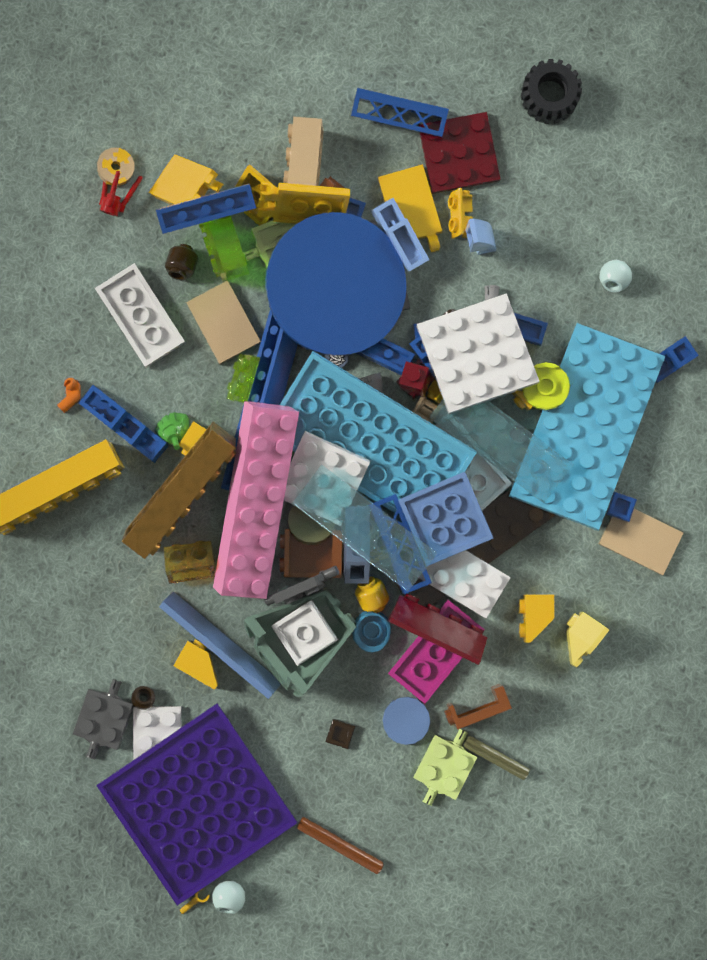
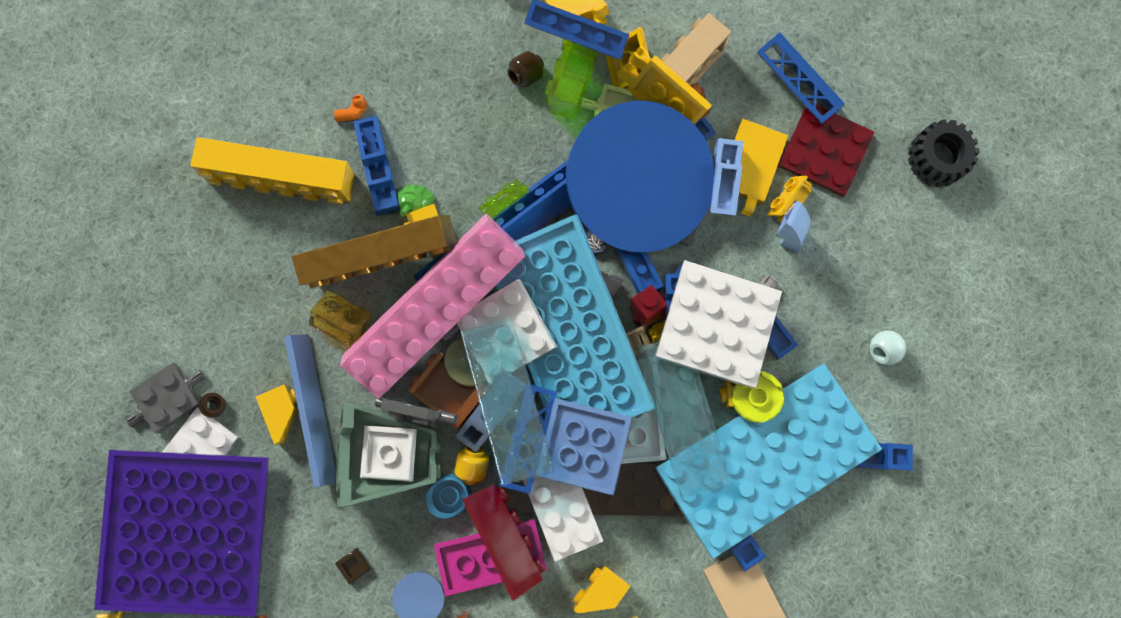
camera: 35 degrees right, 5 degrees down
(140, 315) = (458, 88): white plate -> none
(223, 322) = (523, 144): tan tile -> none

